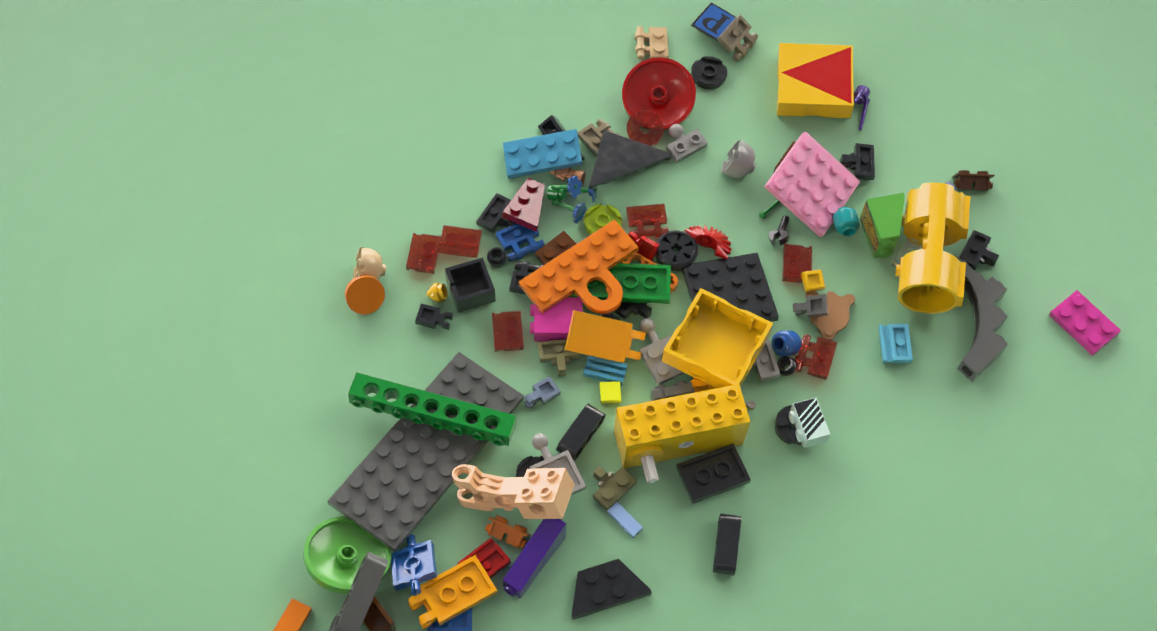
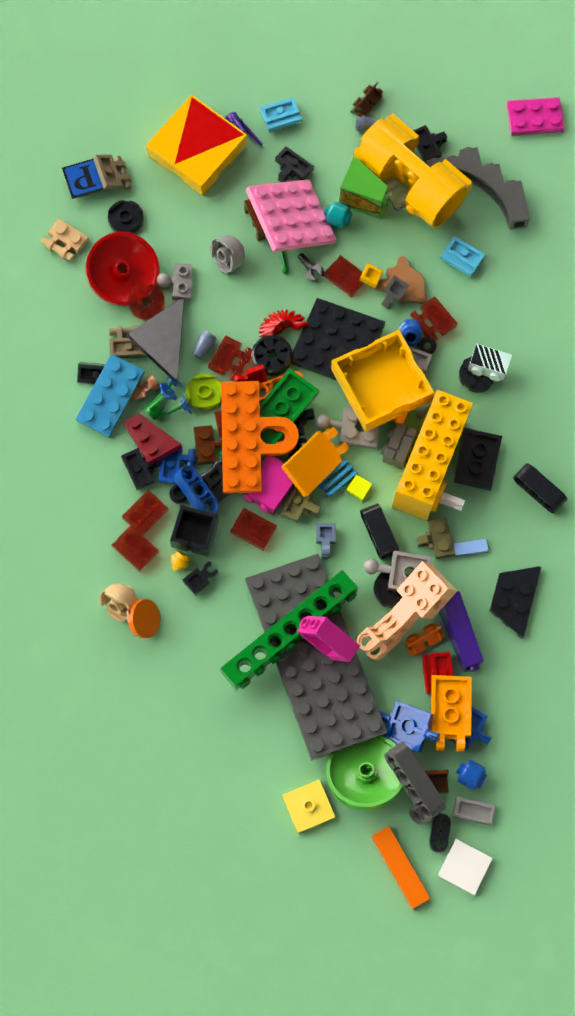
camera: 55 degrees left, 10 degrees up
(286, 529) = (308, 806): none -> light yellow plate
(440, 437) = (328, 638): none -> dark pink window
(512, 257) = (195, 481): none -> blue beam
(643, 194) = (204, 344): none -> sand blue cone
(899, 125) = (281, 114): none -> medium azure plate

